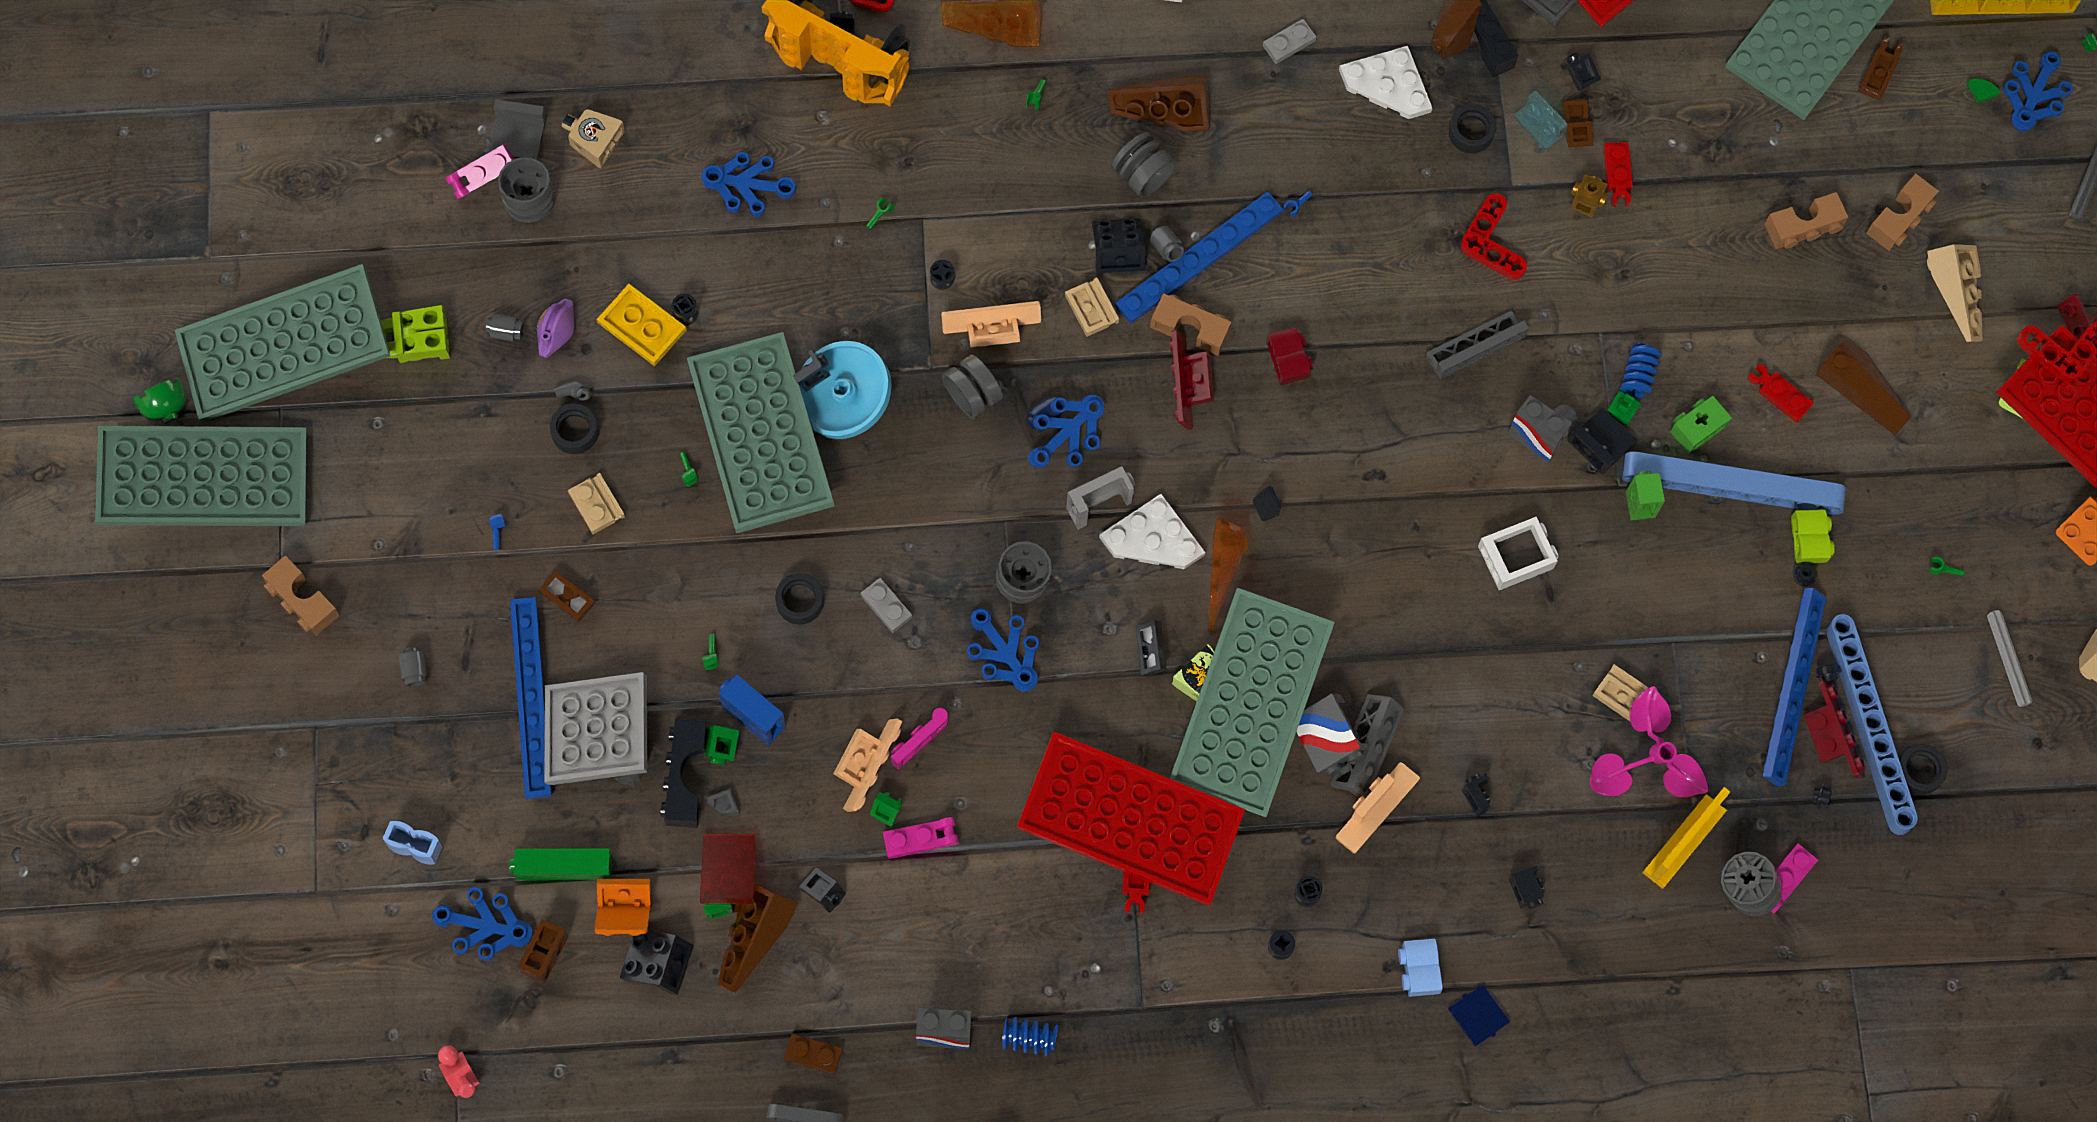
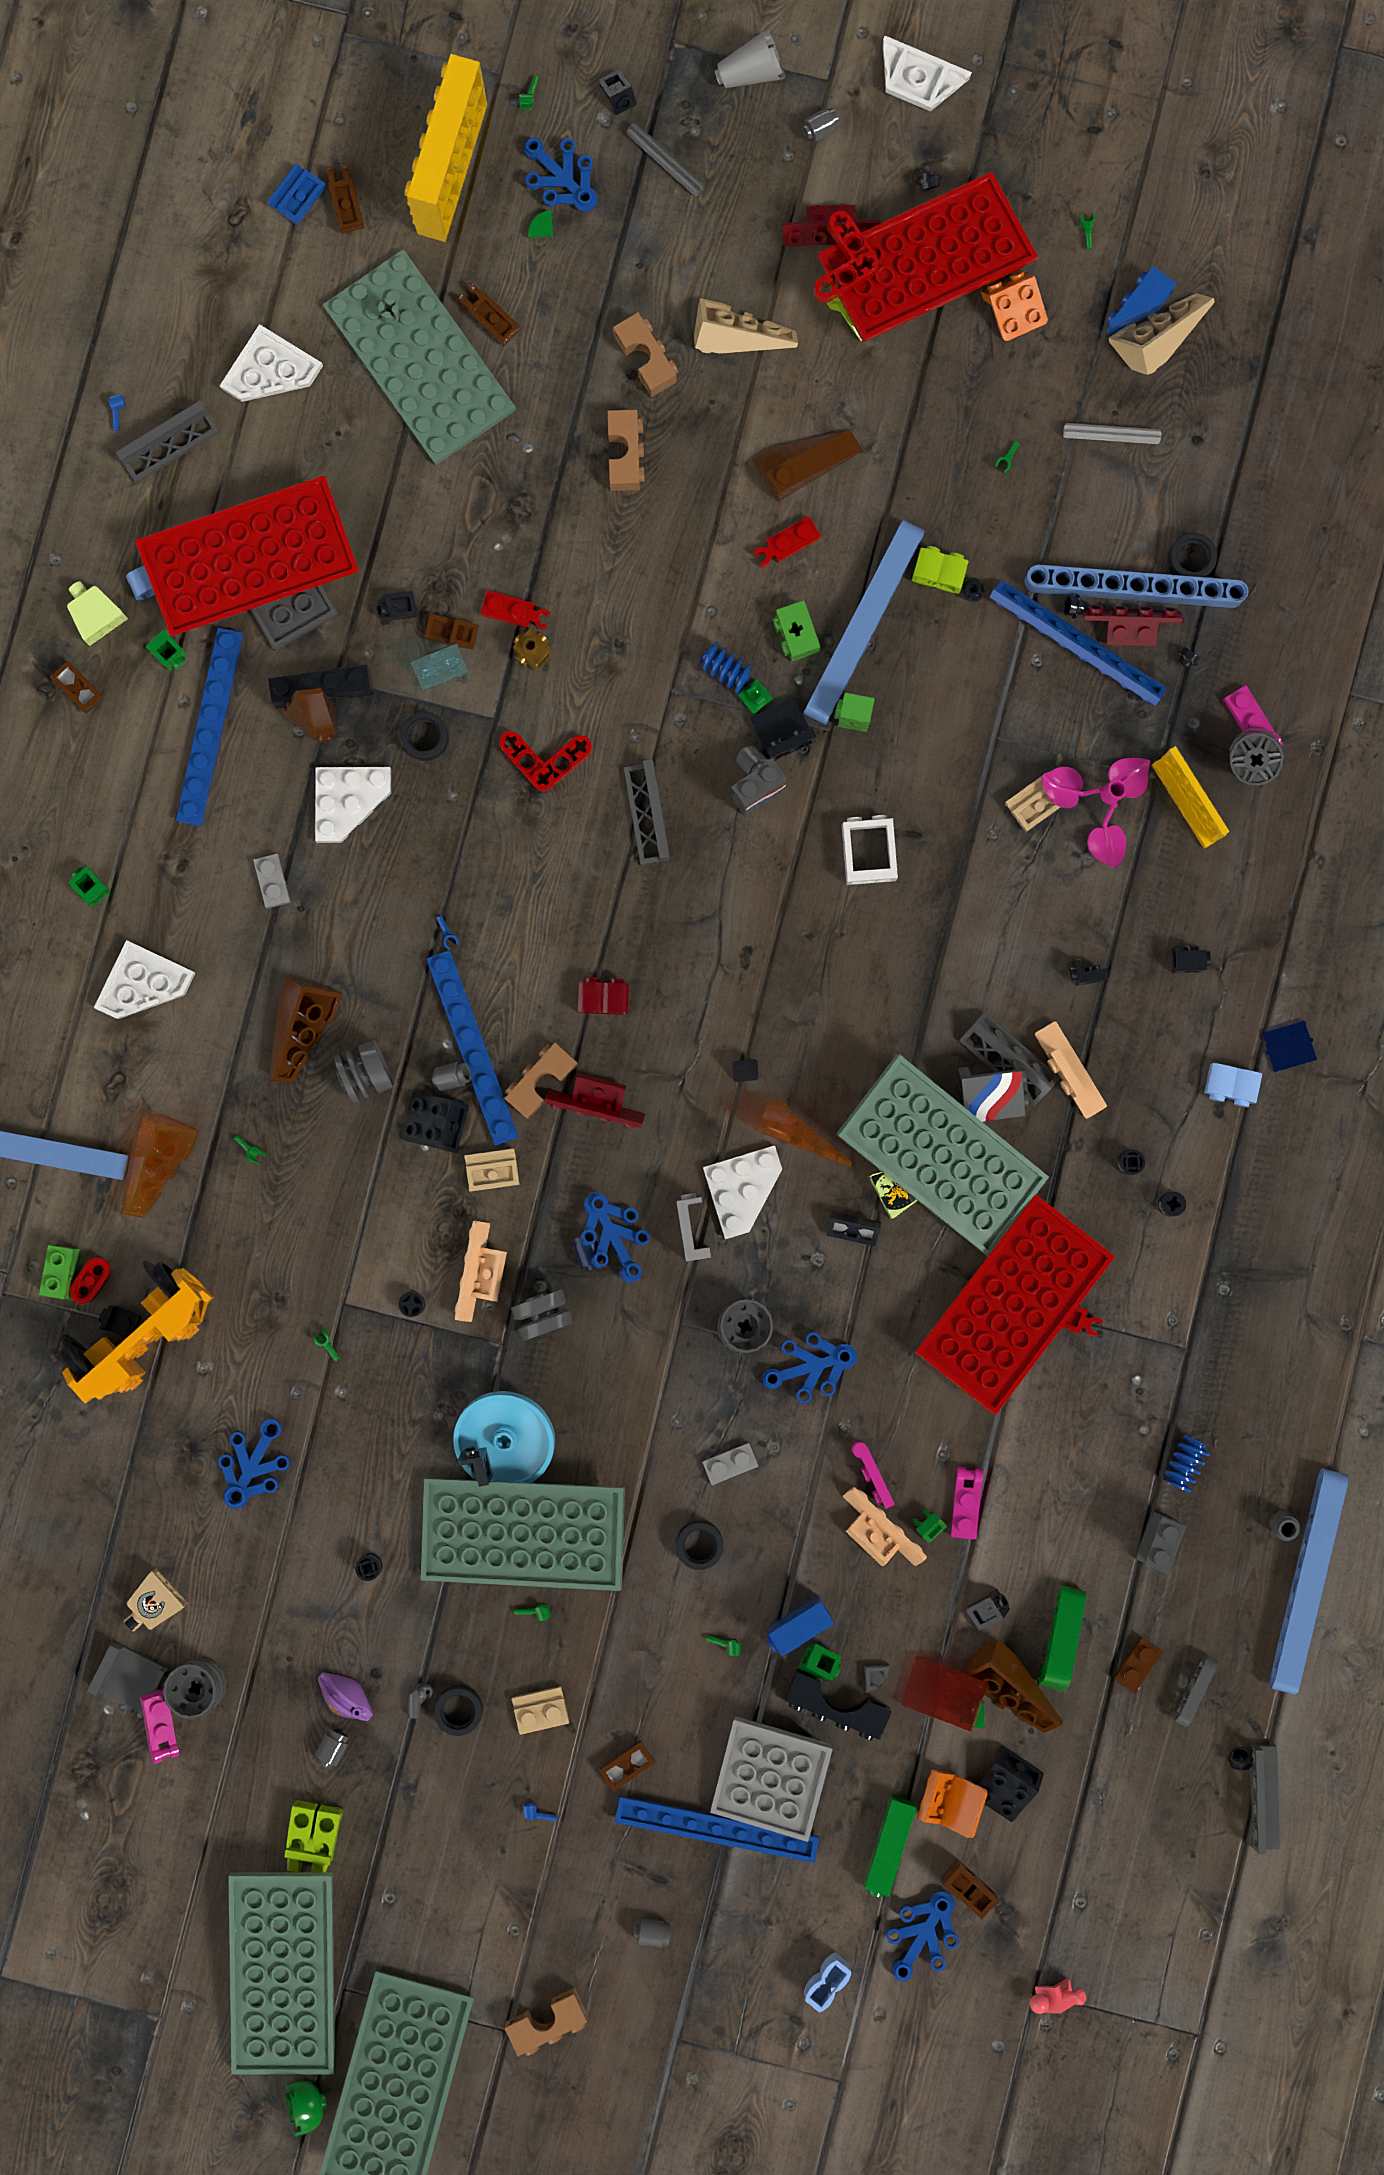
camera: 65 degrees left, 15 degrees up
(641, 324) = (370, 1613): yellow plate -> none
(815, 966) = (1063, 1639): none -> green beam

